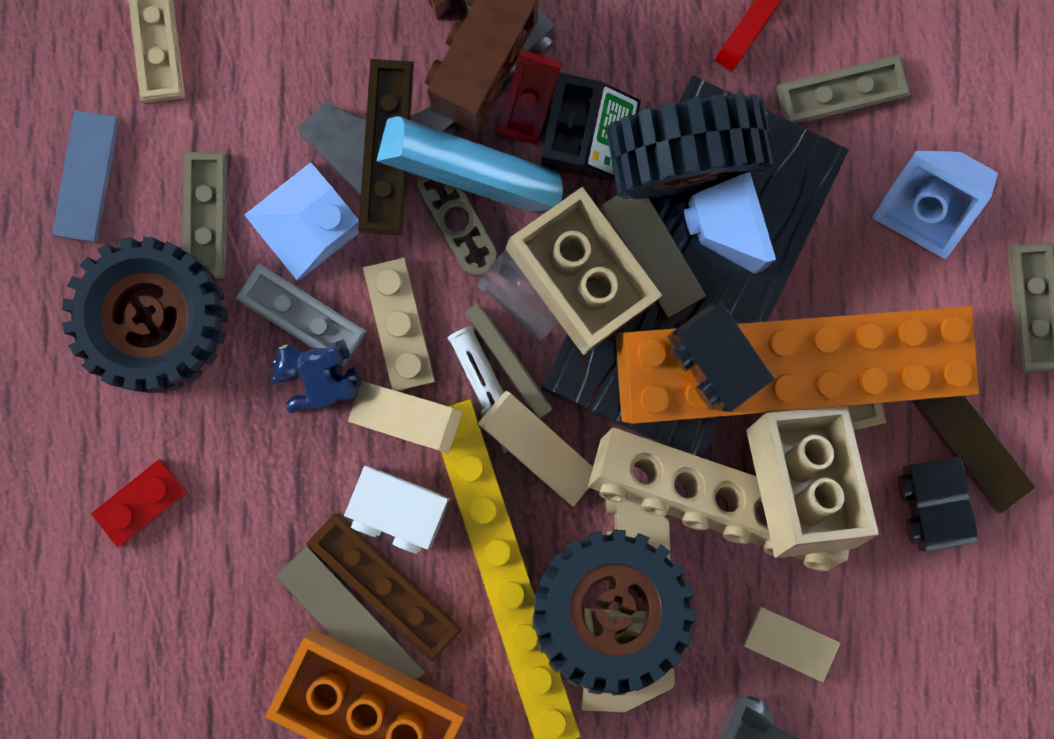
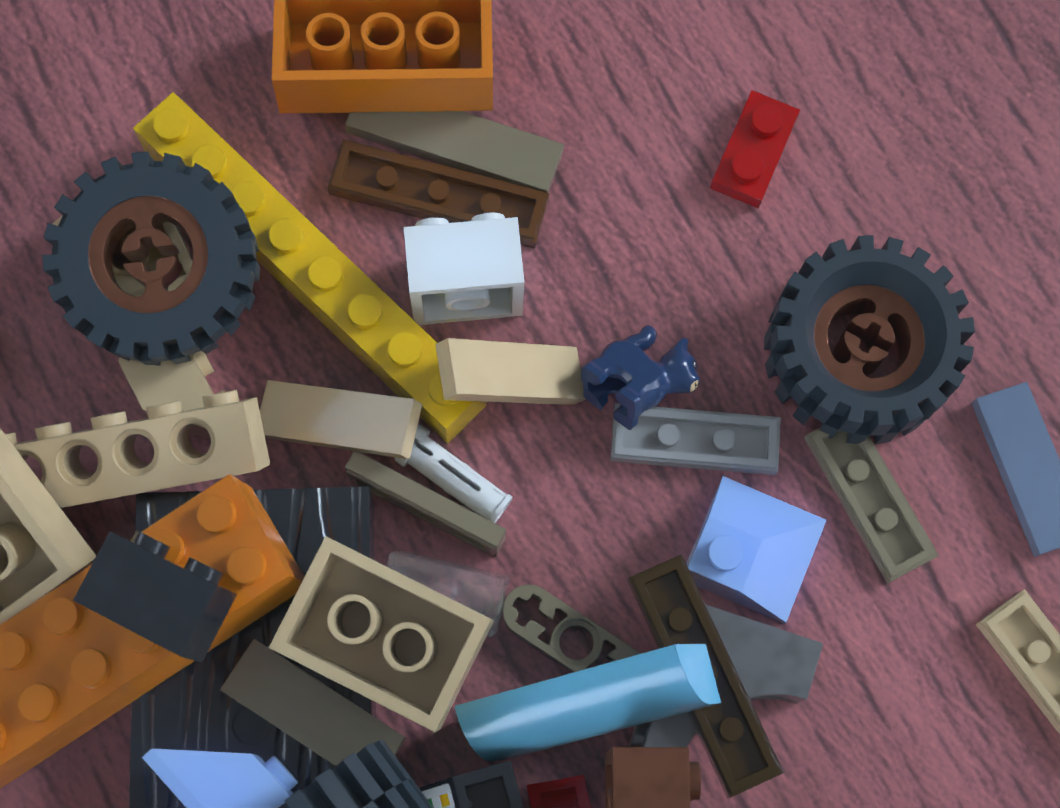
camera: 150 degrees right, 10 degrees down
(399, 325) = (577, 485): tan plate -> none

